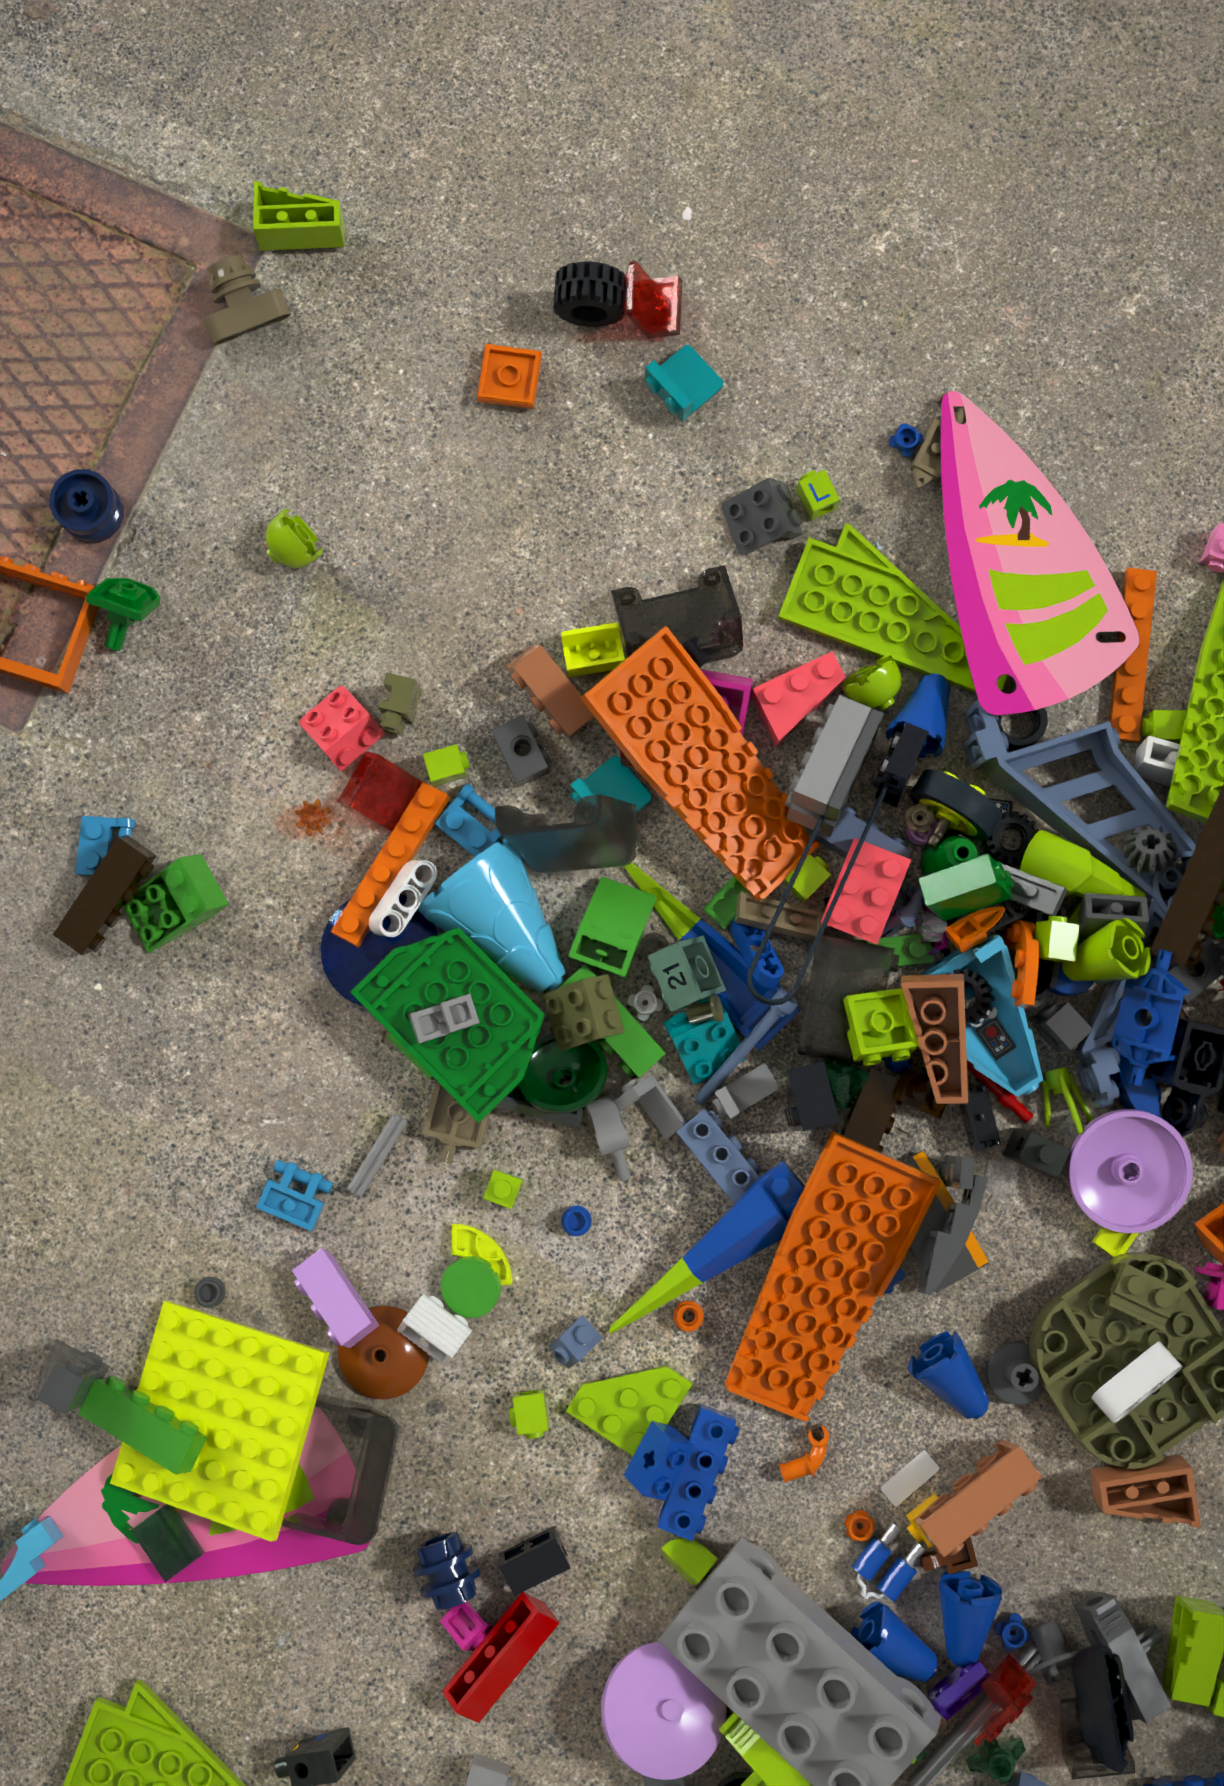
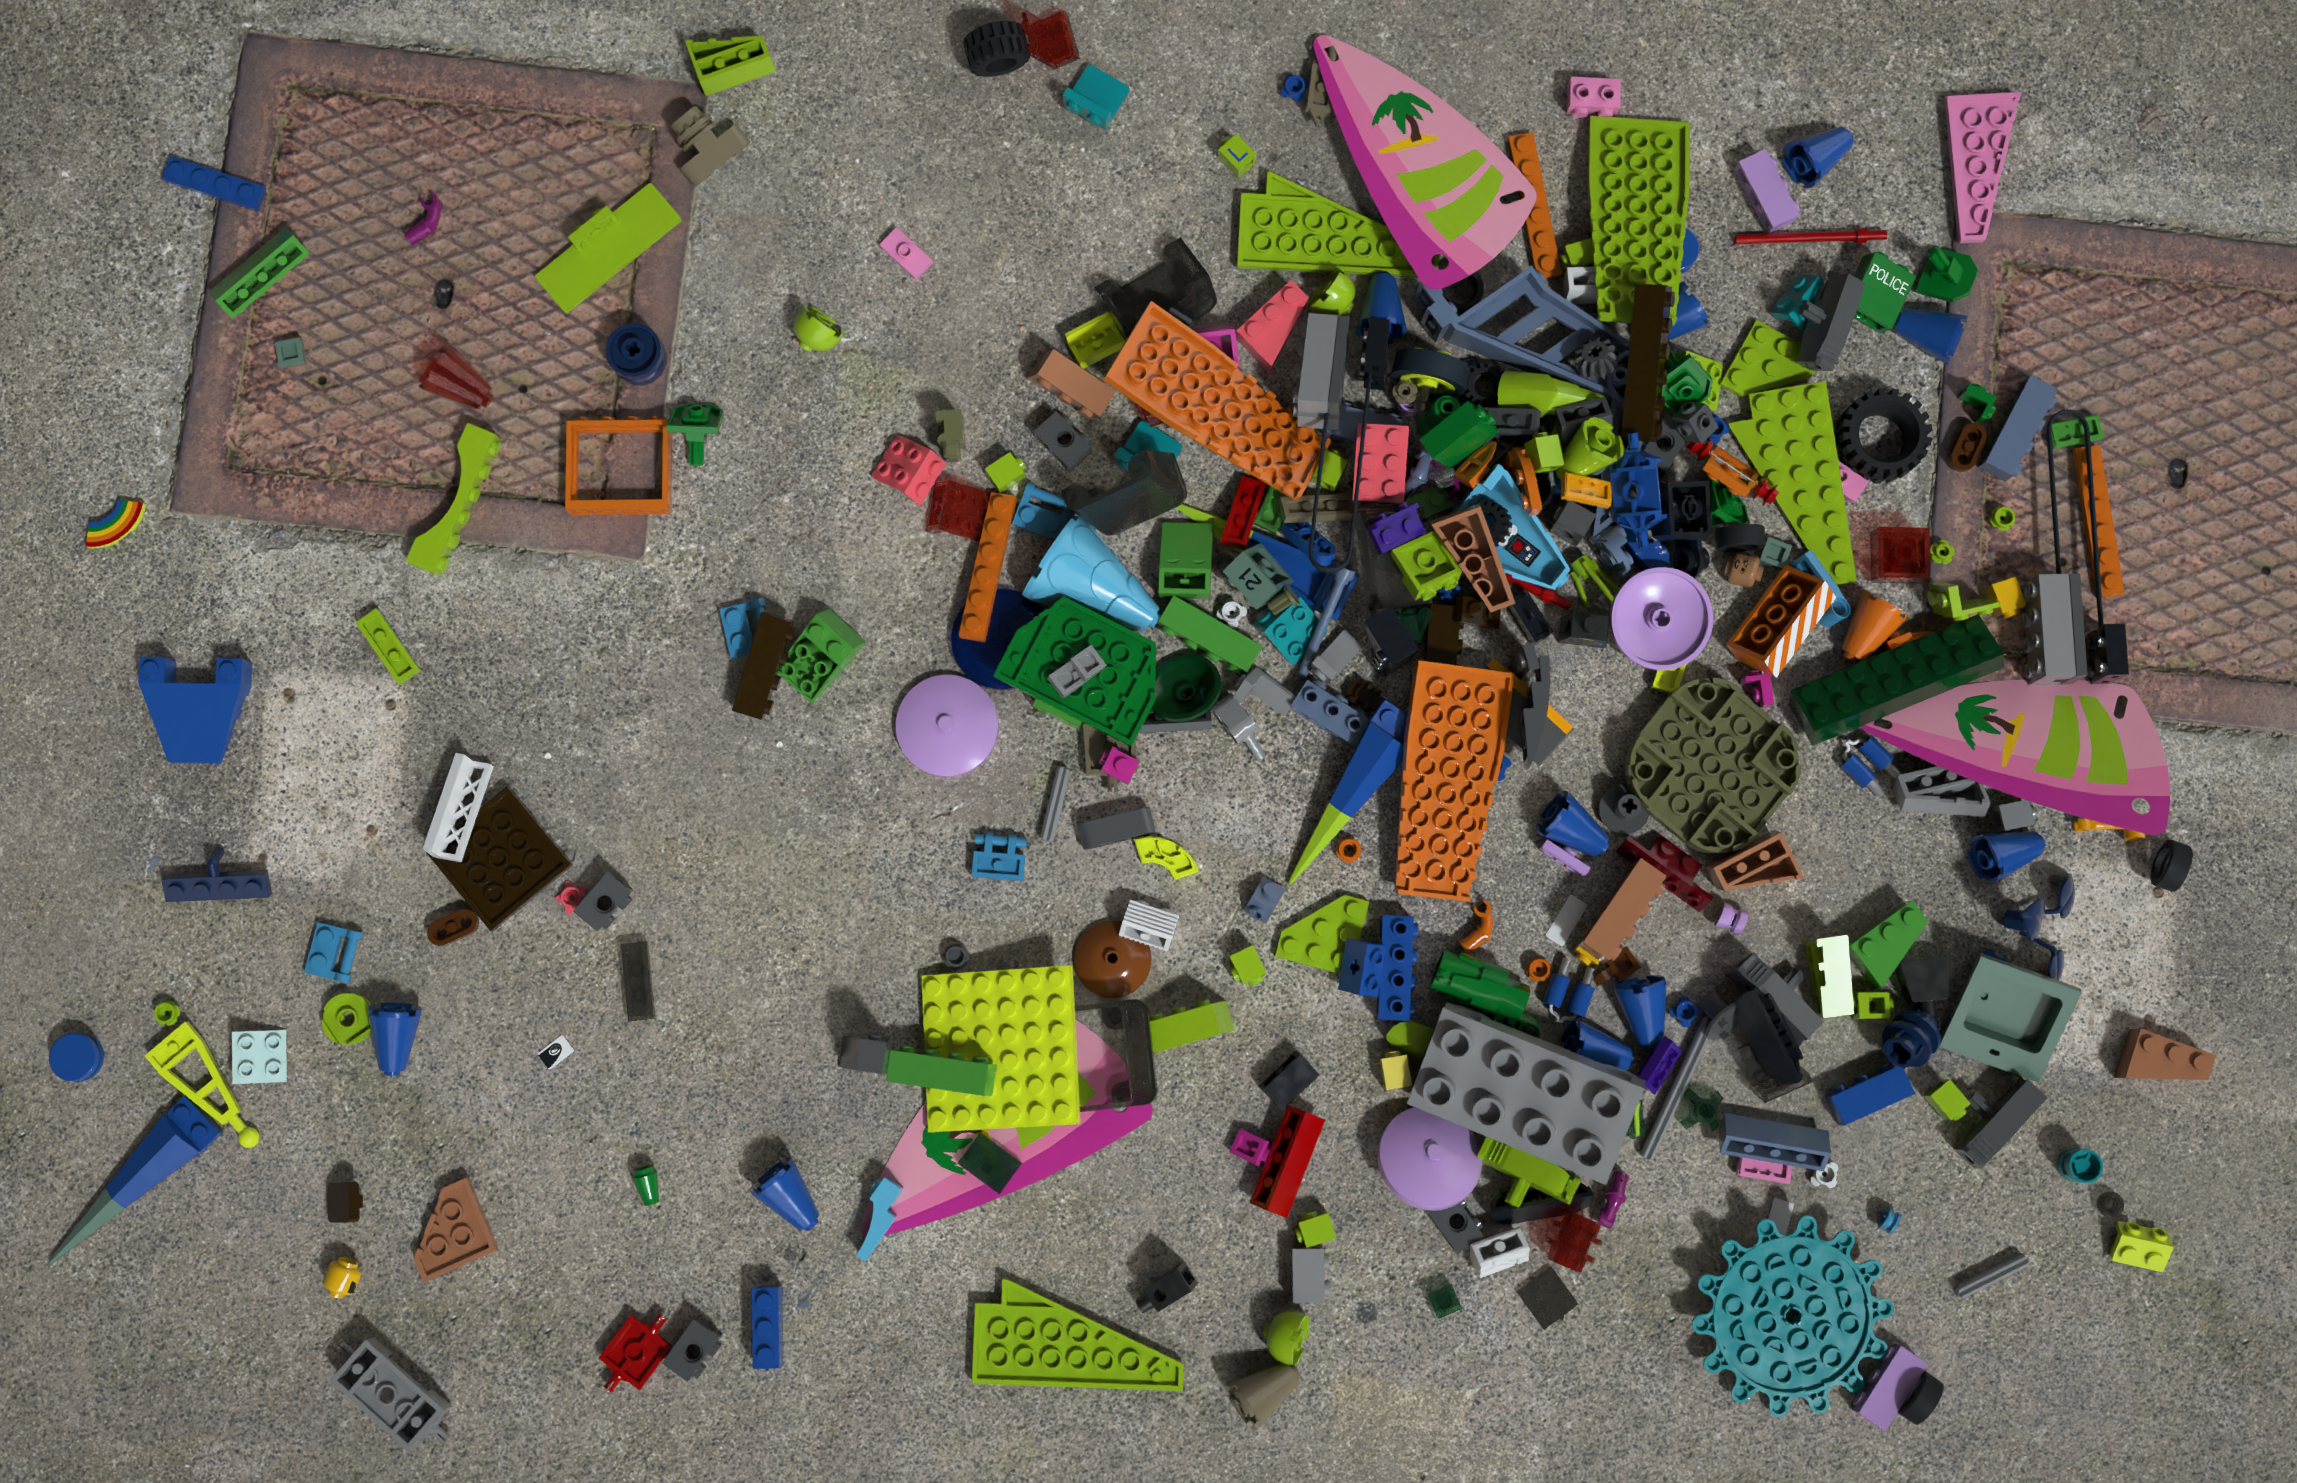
camera: 20 degrees left, 0 degrees up
(97, 378) = (607, 246): none -> lime bracket
(287, 1027) = (947, 725): none -> lavender dish
(317, 825) = (905, 545): clear orange gear -> none
(334, 1299) = (1060, 926): lavender brick -> none
(415, 892) = (1017, 582): white beam -> none
(419, 488) = (906, 253): none -> bright pink plate
(436, 1206) = (1116, 828): none -> dark grey beam
(442, 1462) = (1190, 1025): none -> lime wedge
(448, 1575) = (1222, 1107): dark blue piece -> none
(460, 1136) = (1118, 765): none -> dark pink bracket
(470, 1287) = (1166, 882): bright green tile -> none
(503, 1188) = (1167, 796): lime brick -> none
(507, 1745) = (1314, 1229): none -> lime brick
(509, 376) = (950, 137): orange plate -> none
(576, 1220) = (1233, 804): blue plate -> none
(583, 1012) = (1185, 633): olive bracket -> none
(658, 1591) = (1395, 1070): none -> light yellow brick
(693, 896) = (1243, 513): none -> red plate
(759, 1140) = (1368, 698): none -> dark brown piece
(761, 516) = (1196, 187): dark grey bracket -> none
(792, 1534) = (1483, 988): none -> green piece
(859, 972) = (1395, 529): none -> dark purple bracket
(932, 1407) = (1565, 857): none -> lavender plate
(1010, 1689) = (1695, 1048): clear red bracket -> none
(1051, 1458) = (1673, 863): none -> dark red bracket
(1090, 997) = (1586, 490): none -> light orange plate
(1102, 1544) = (1731, 918): none -> lavender wheel
(1136, 1382) = (1718, 780): white beam -> none
(1143, 1296) = (1702, 712): olive plate -> none

